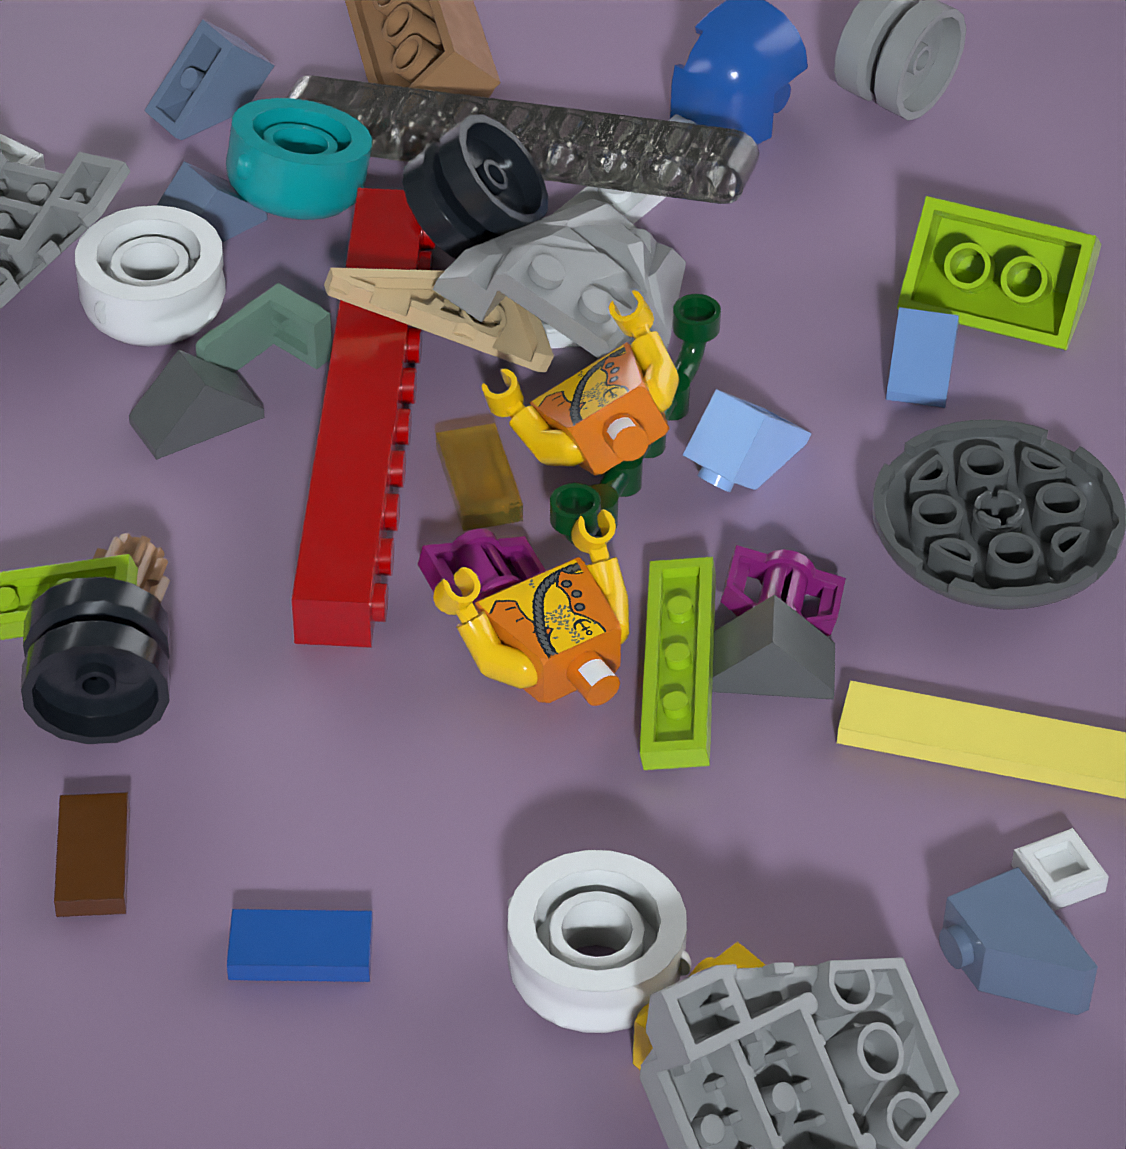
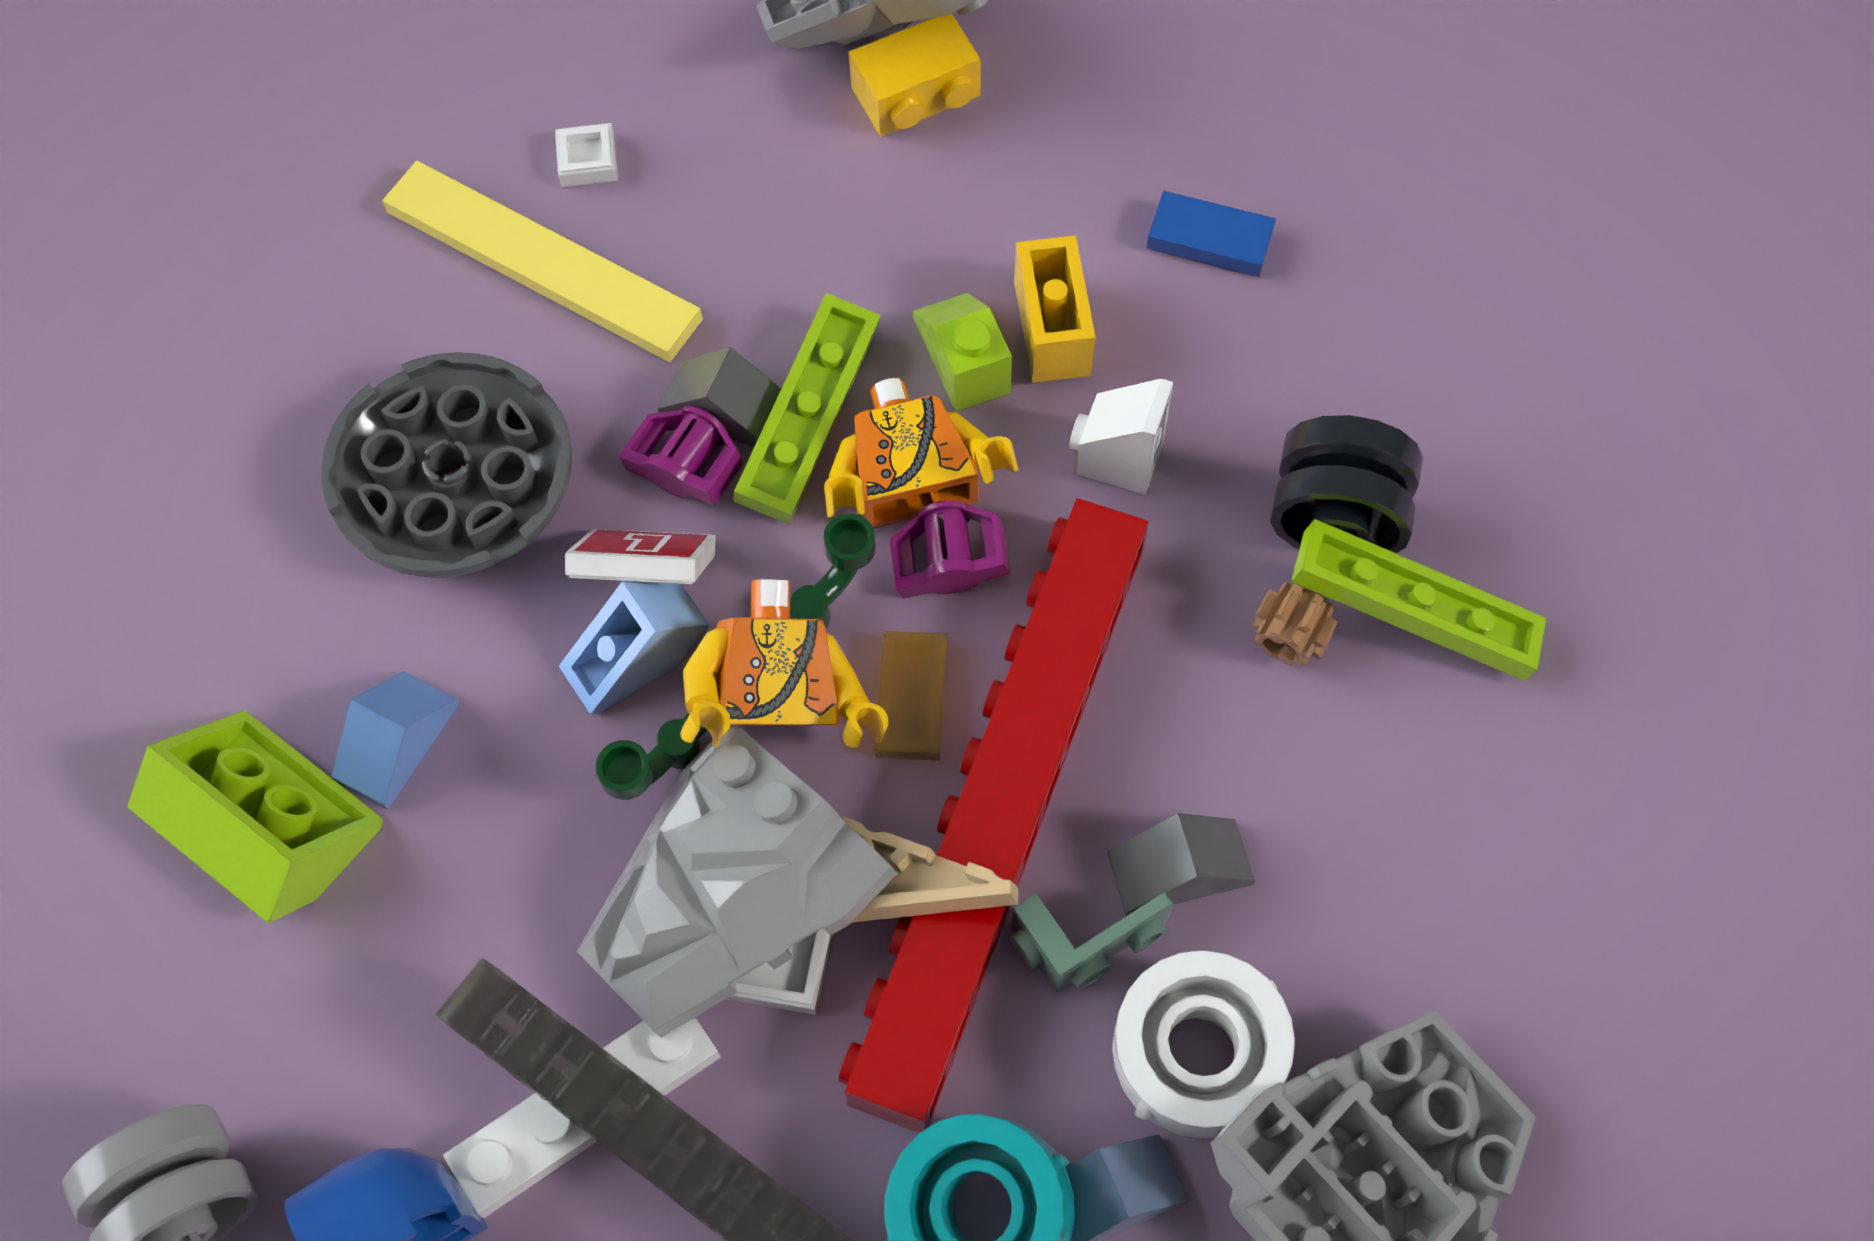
camera: 160 degrees left, 20 degrees up
(92, 854) = (1368, 357): reddish brown tile -> none
(338, 678) = (1123, 435): none -> white slope
(451, 780) = (1054, 309): none -> yellow brick
(474, 185) = (791, 1052): black wheel -> none
(540, 748) = (966, 350): none -> lime slope
(600, 902) = (989, 104): white piece -> none
(770, 479) = (640, 556): none -> white tile
(1016, 945) = (662, 85): sand blue slope -> none

